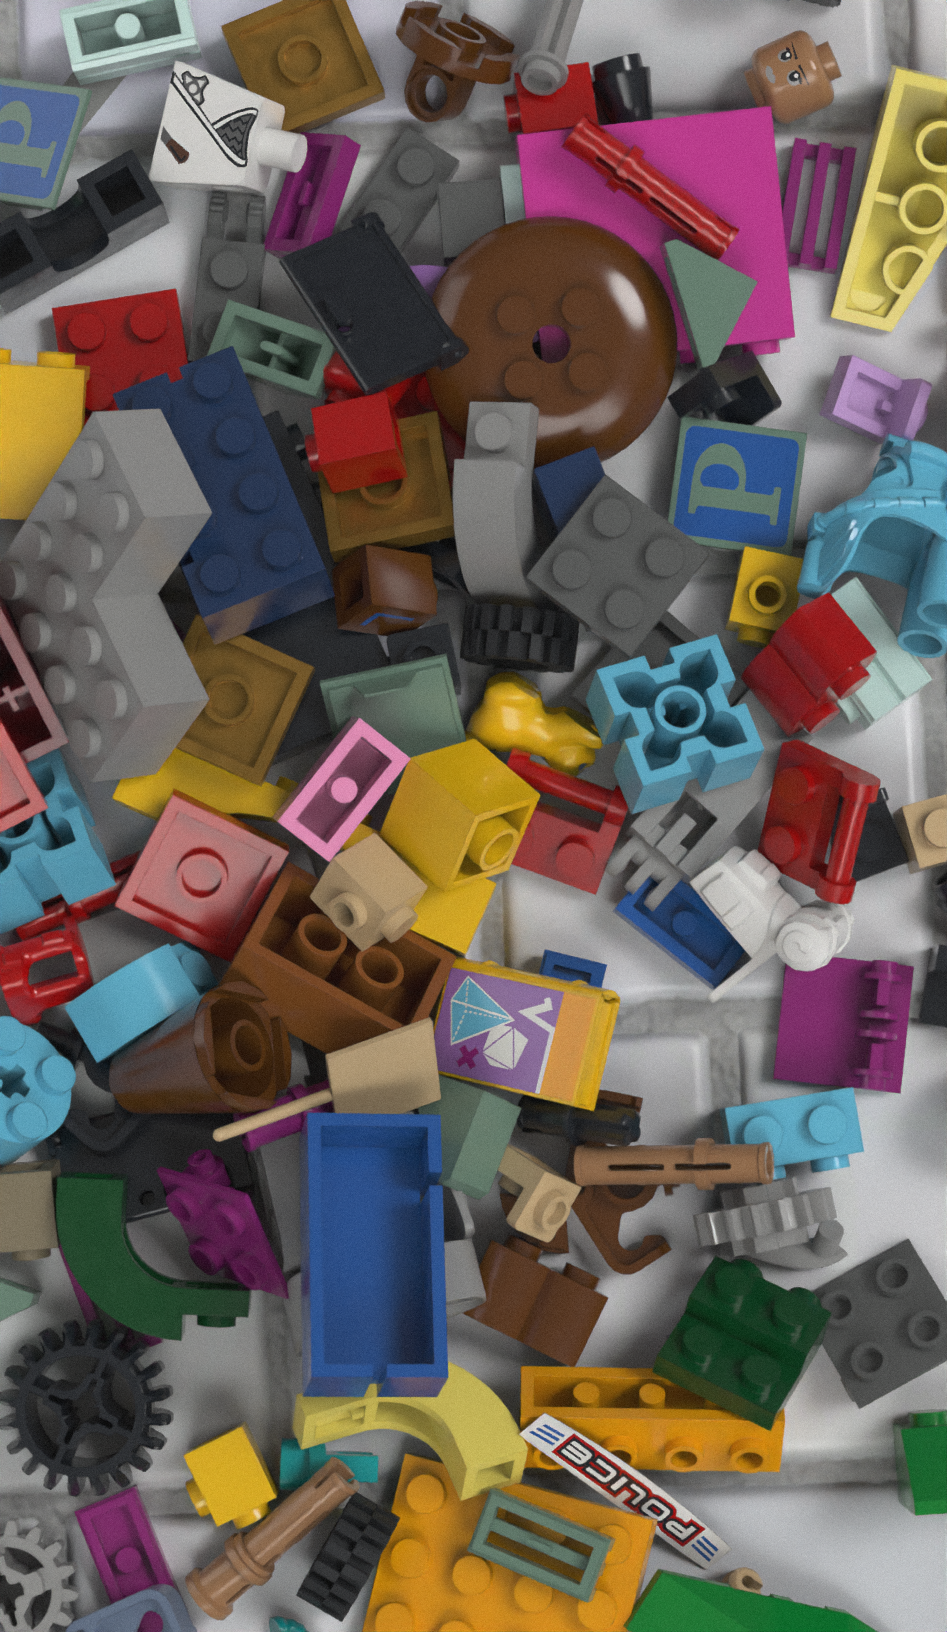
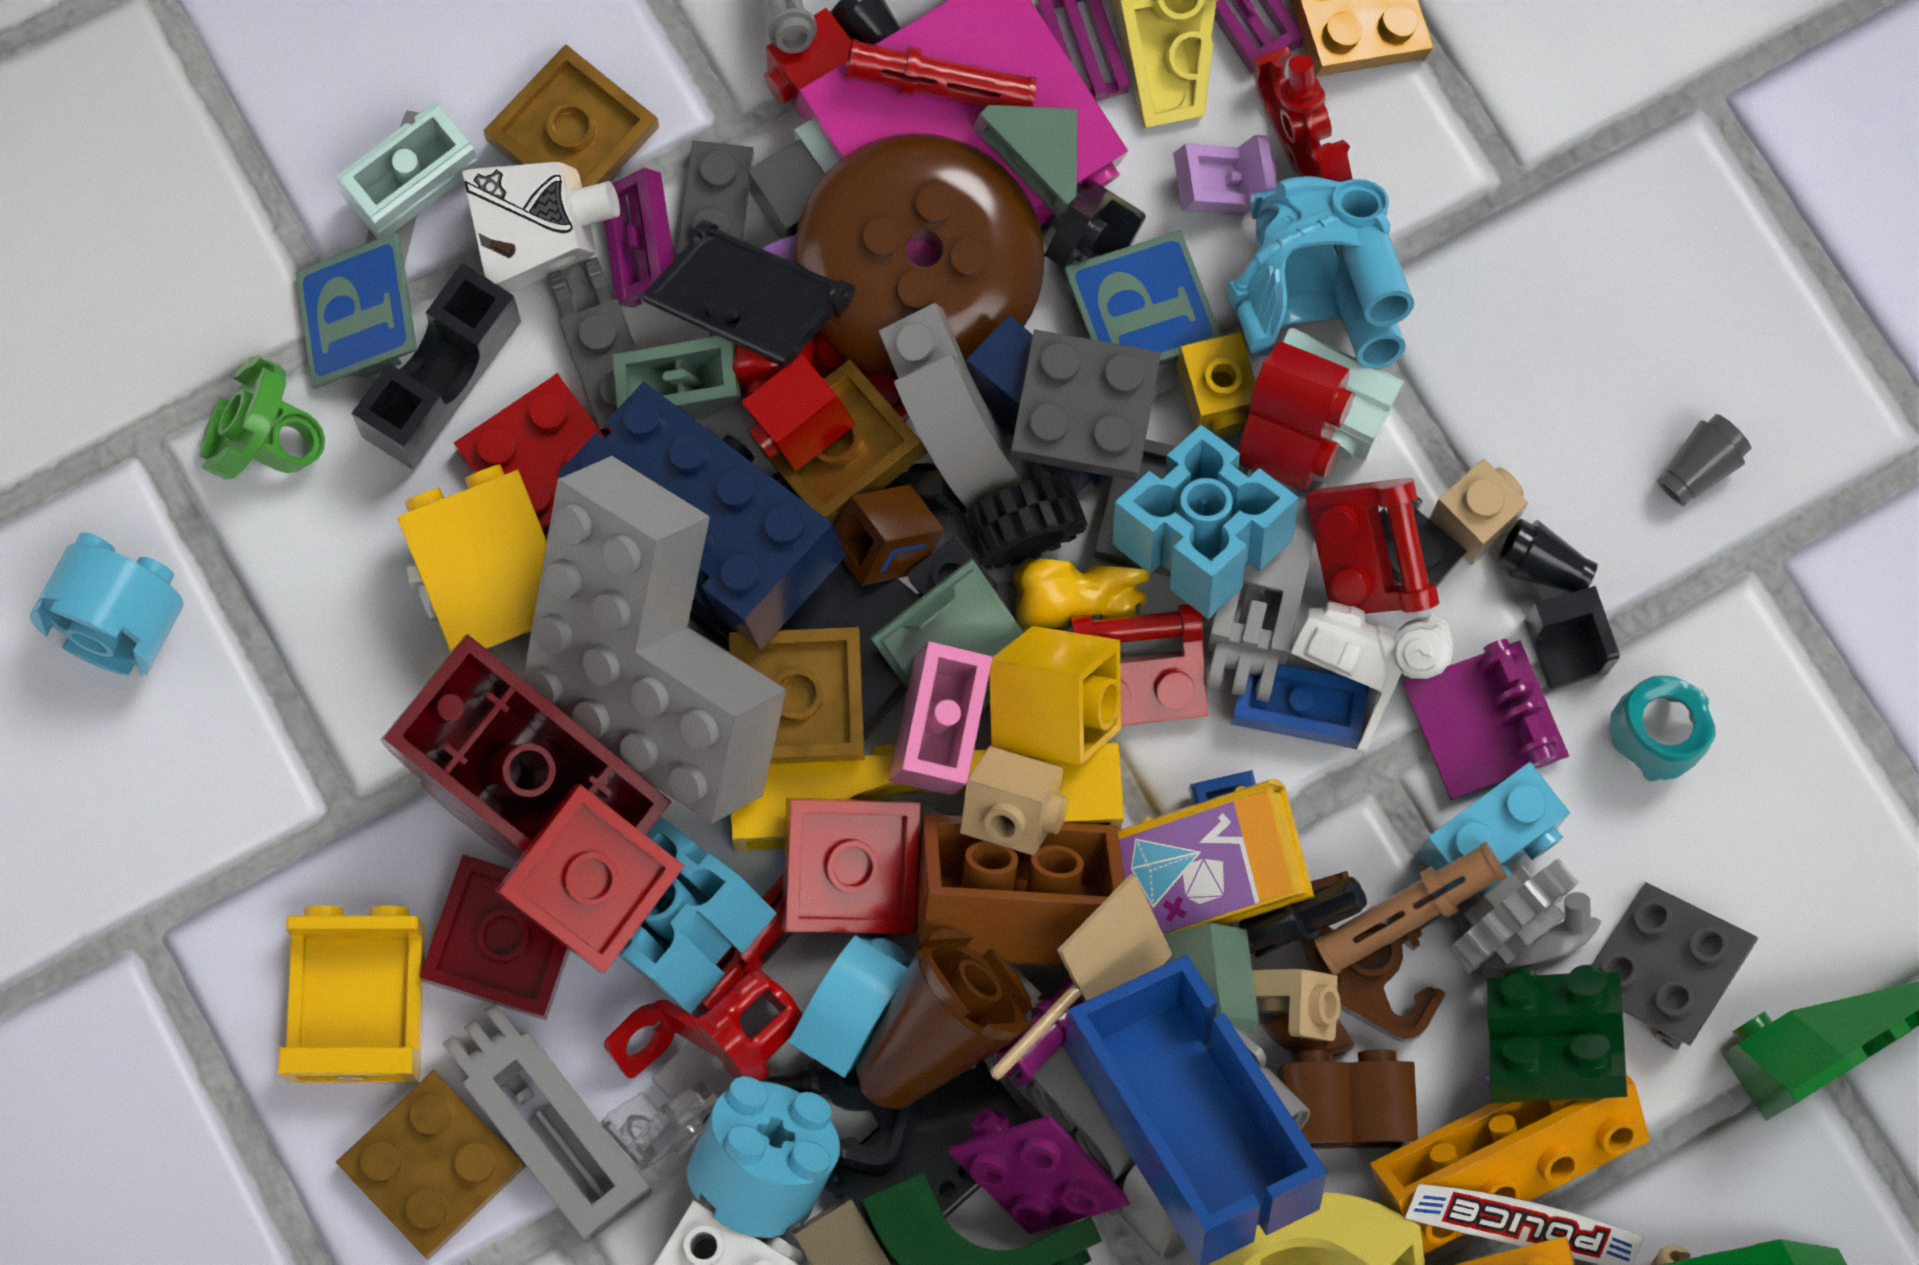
camera: 30 degrees left, 10 degrees down
(453, 52) = (703, 56): reddish brown tile -> none

